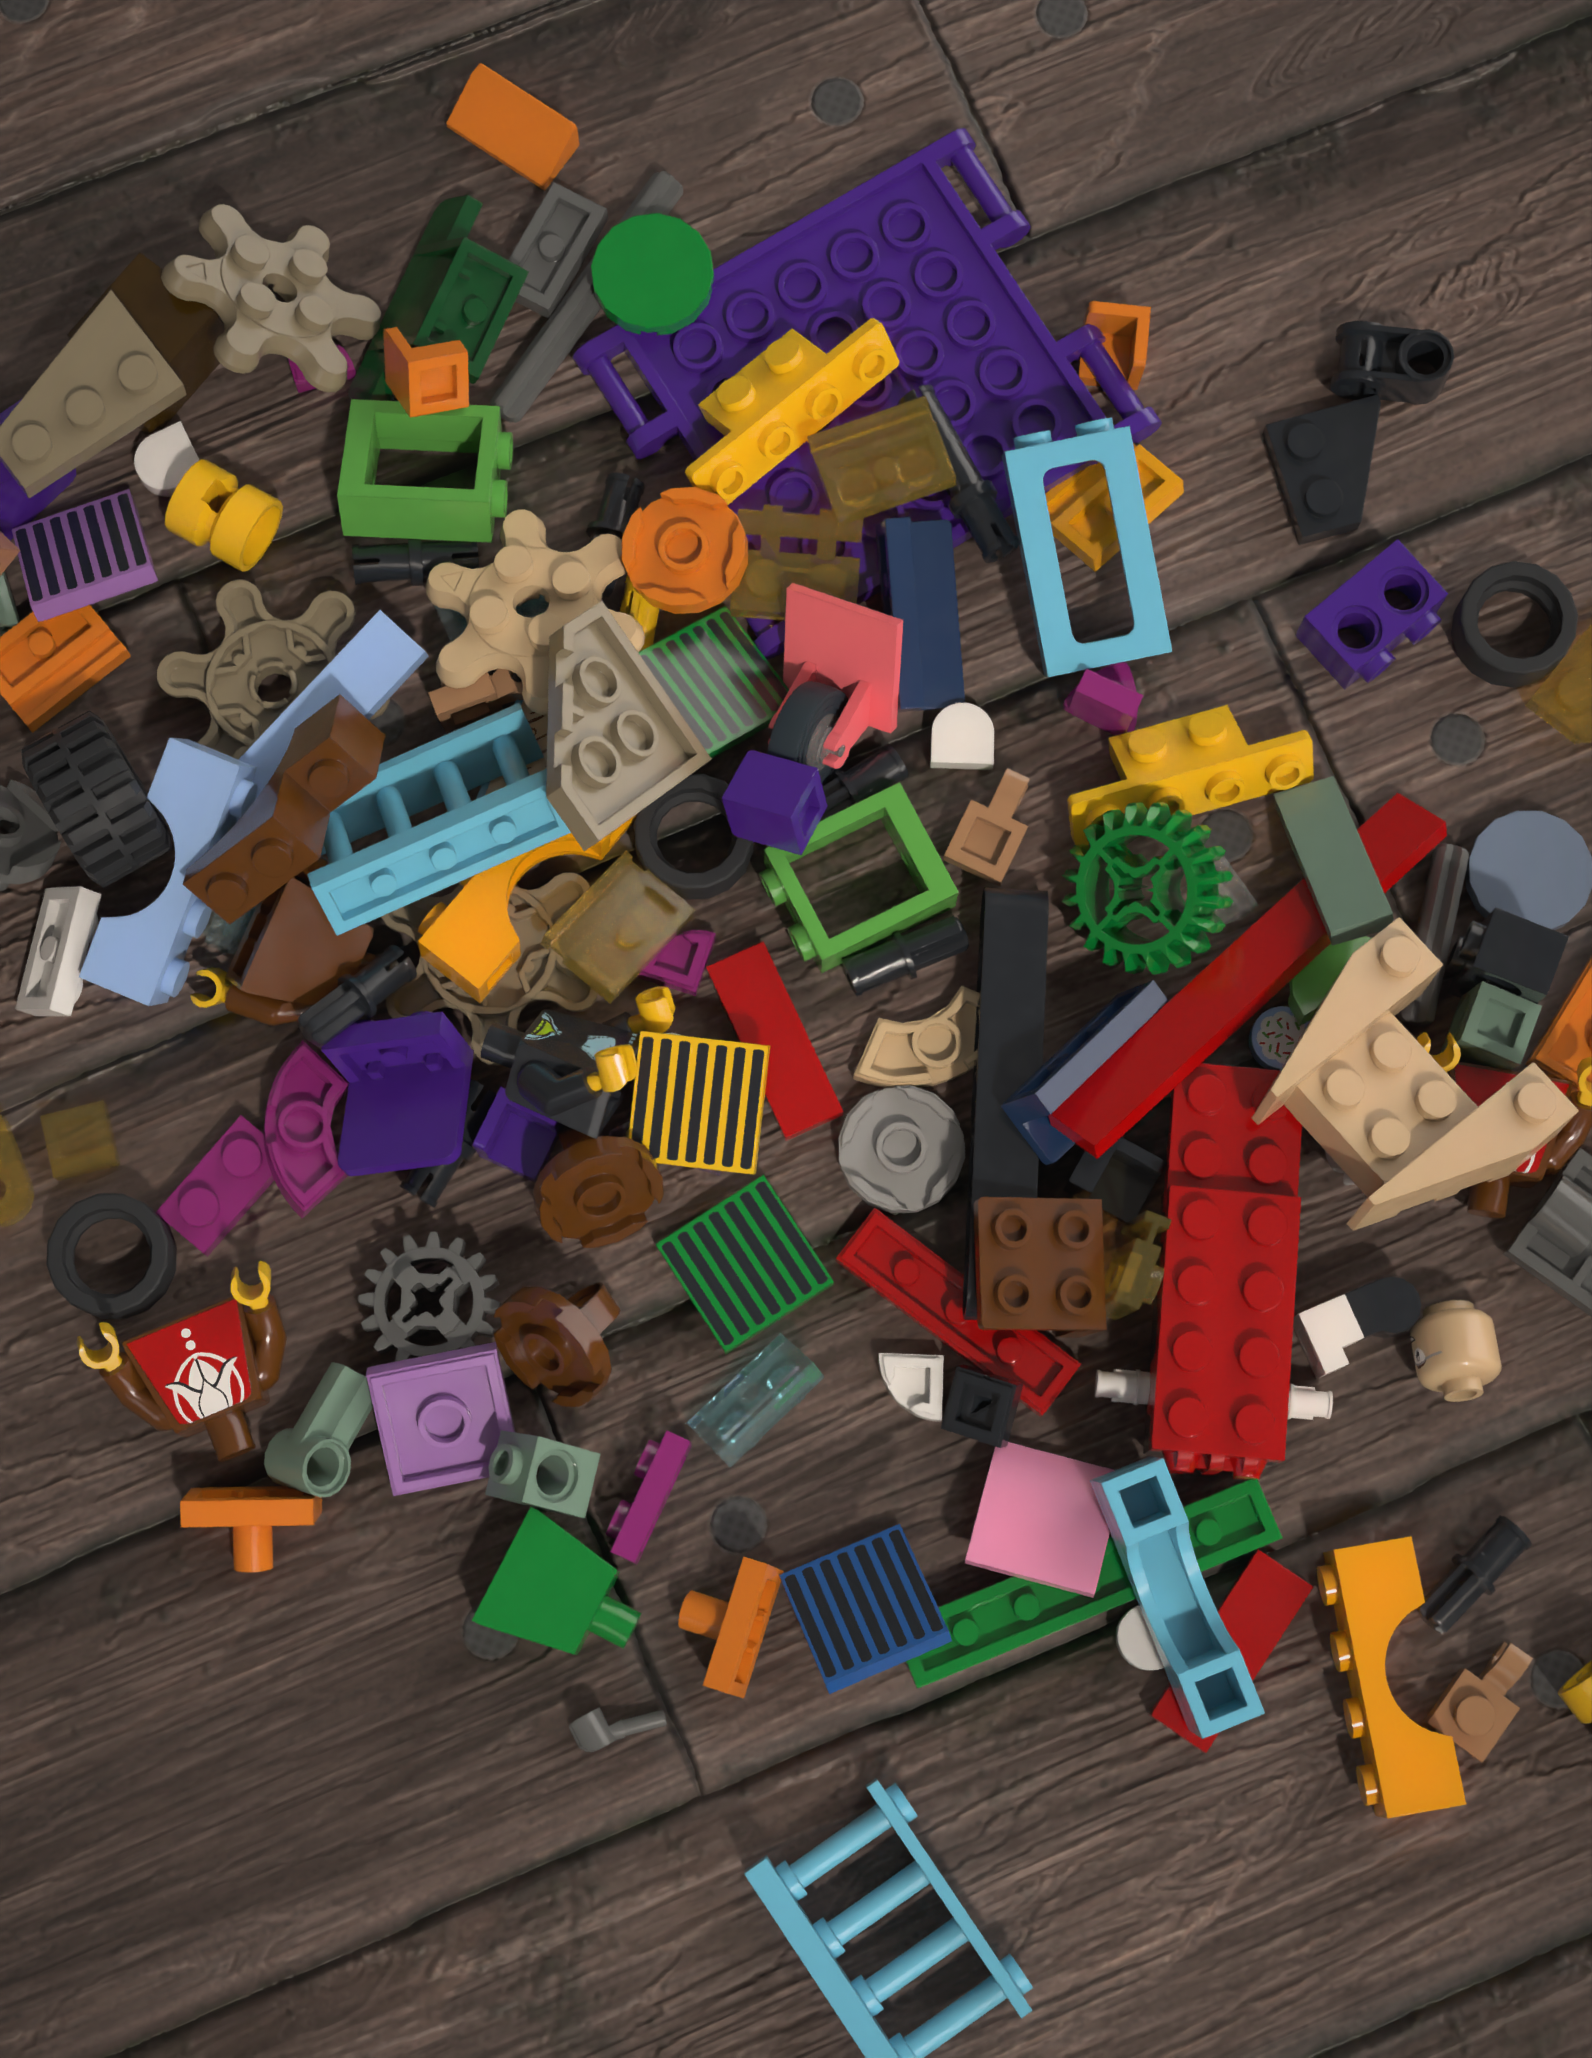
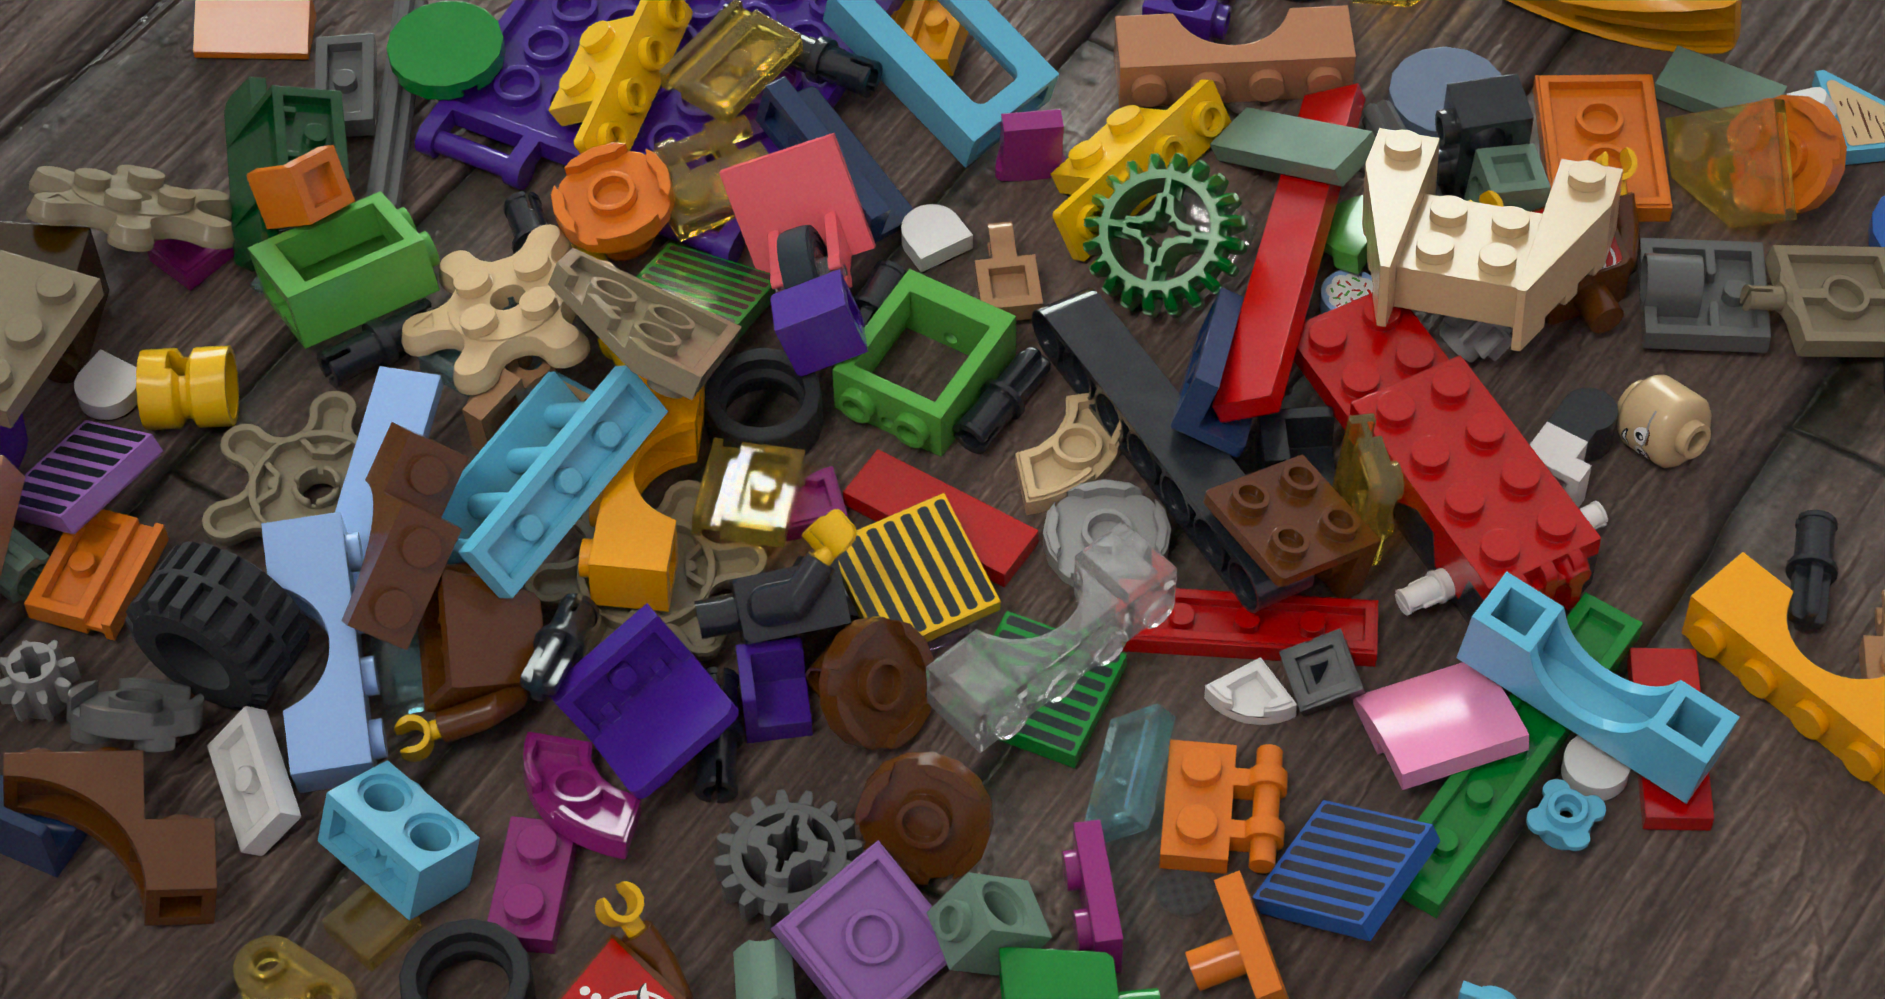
camera: 30 degrees left, 25 degrees down
(118, 1087) = (398, 839): none -> medium azure brick
(691, 1255) = (995, 683): none -> clear arch
(800, 1459) = (1199, 807): none -> orange plate
(1106, 1672) = (1561, 831): none -> medium azure plate
(1424, 755) = (1163, 60): none -> nougat arch

